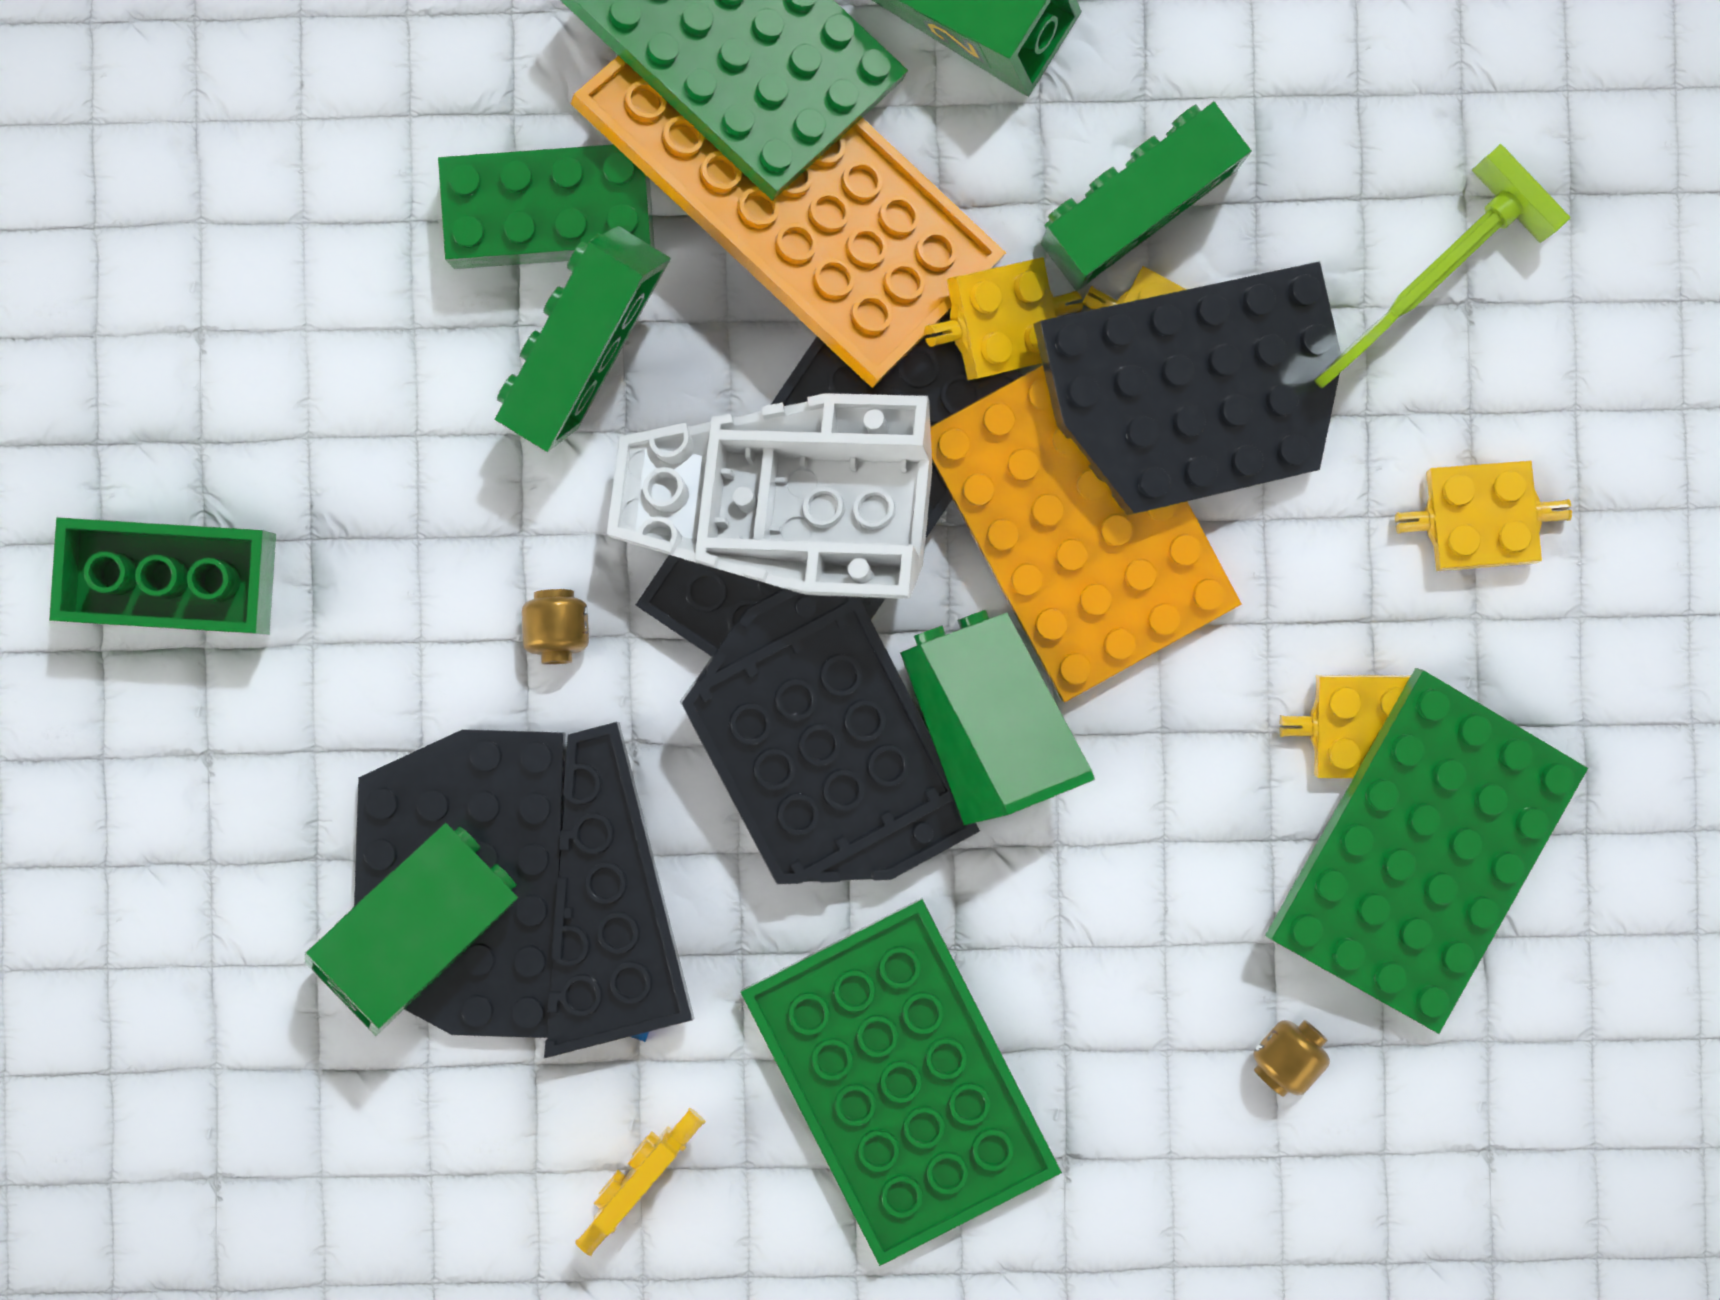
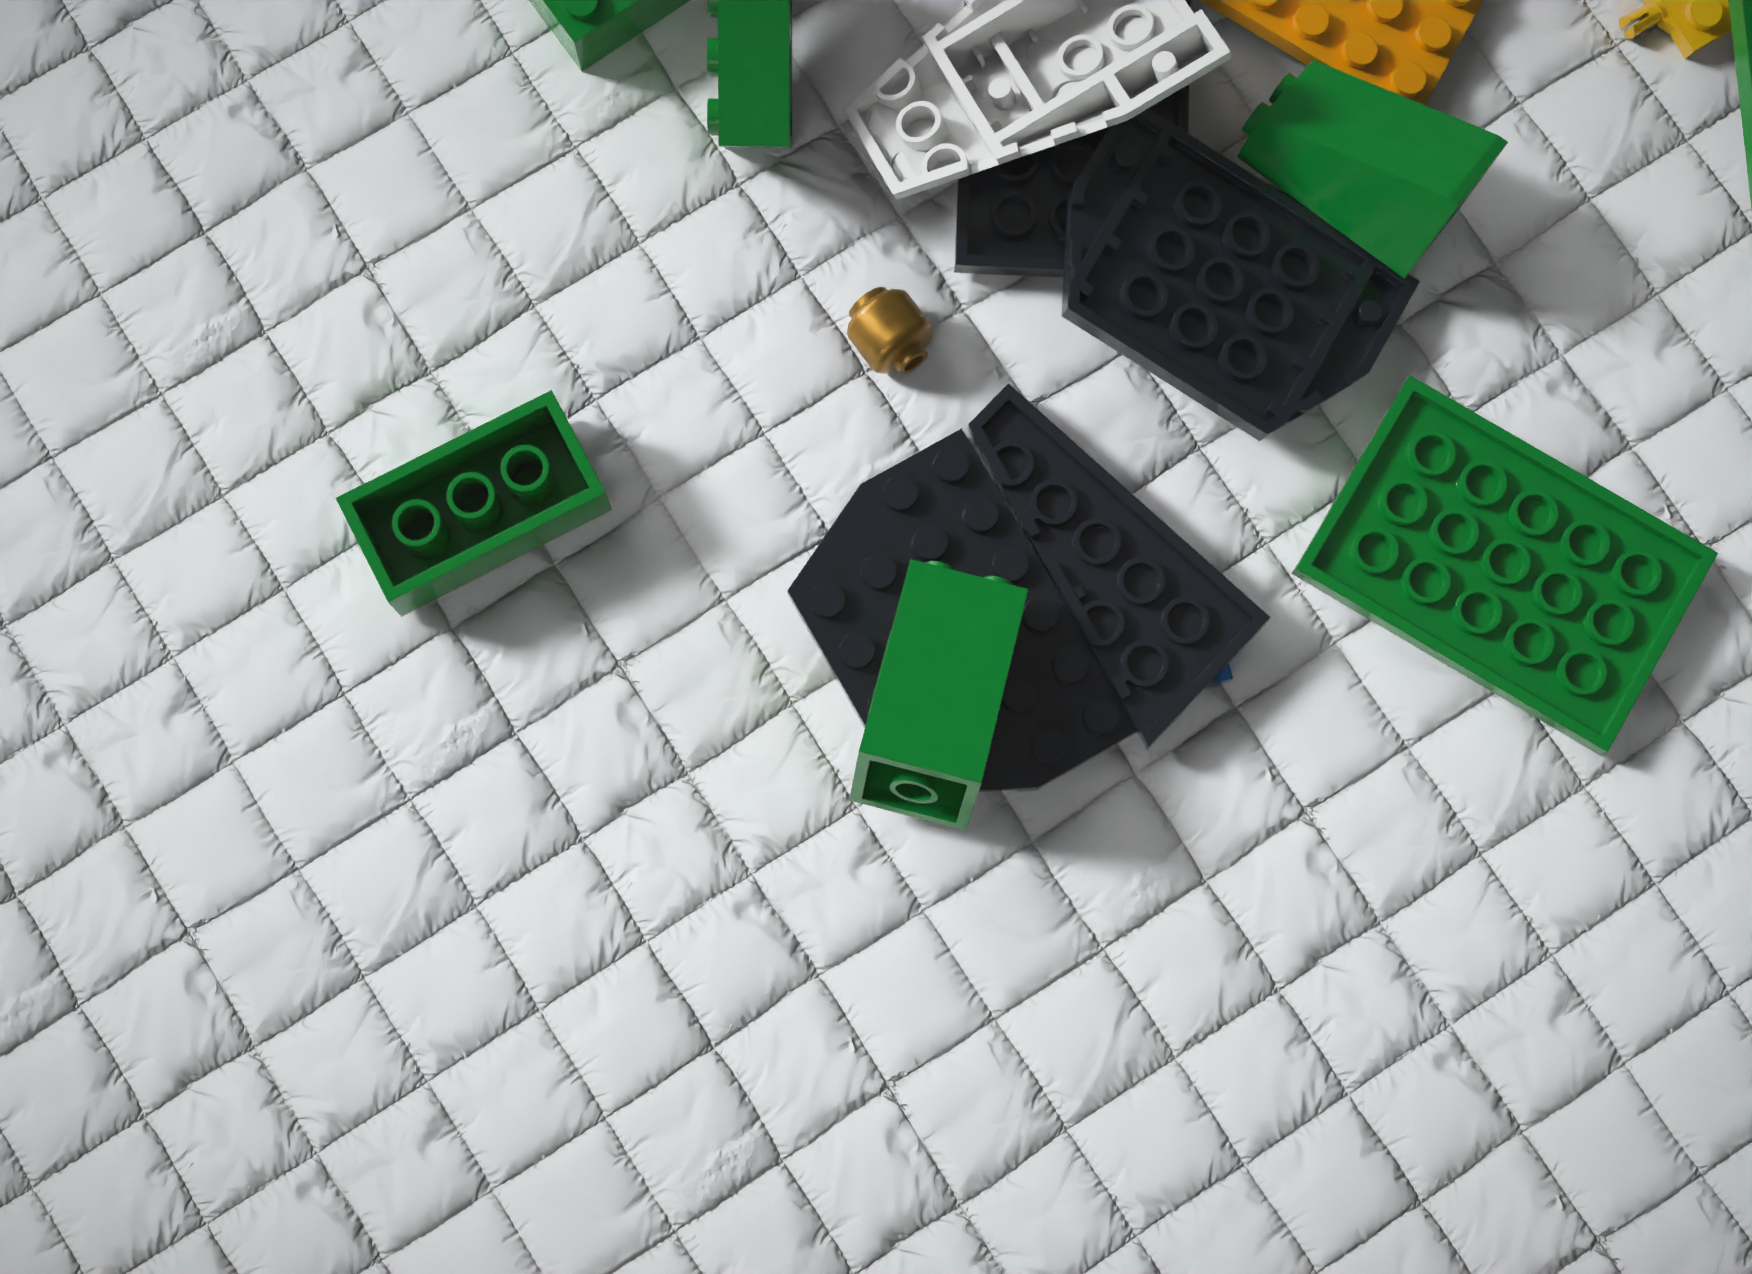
camera: 40 degrees left, 10 degrees down
(647, 1164) = (1323, 789): yellow plate -> none

